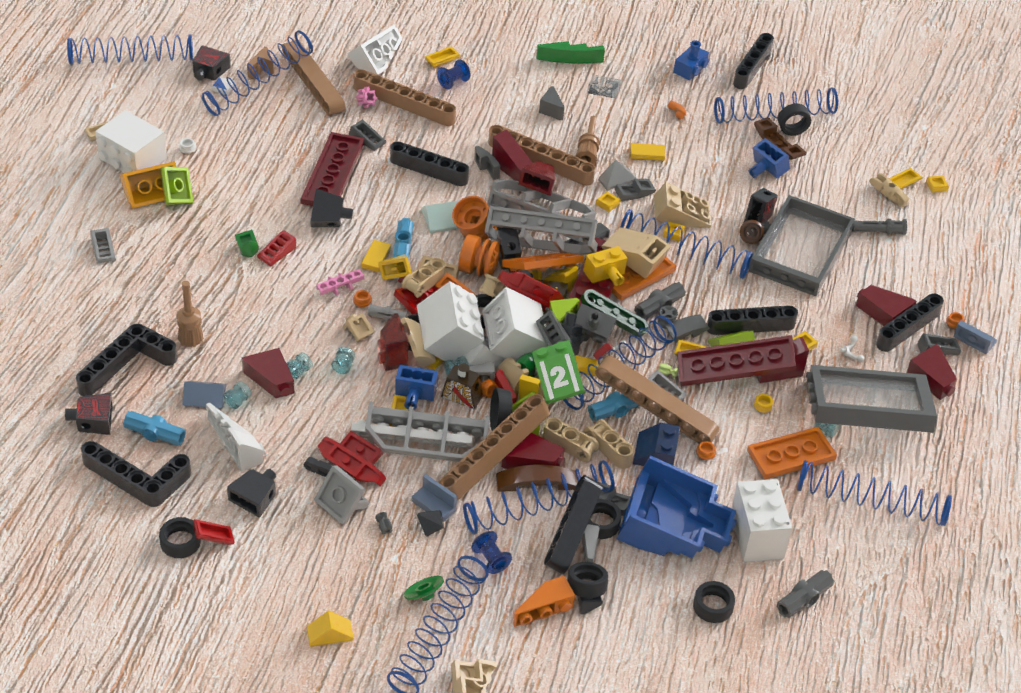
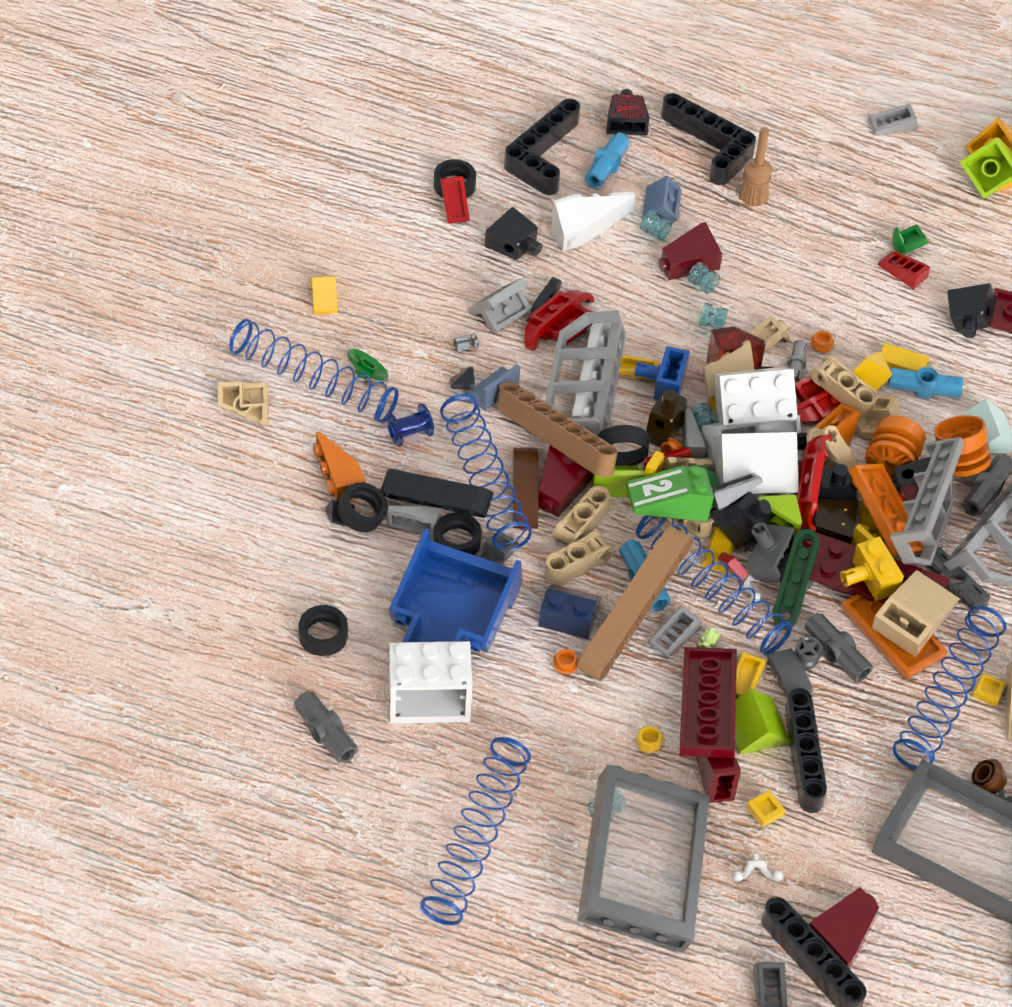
camera: 95 degrees right, 5 degrees up
(332, 283) = (847, 318): bright pink piece -> none
(789, 451) = (558, 755): orange plate -> none
(937, 369) = (710, 965): dark red slope -> none

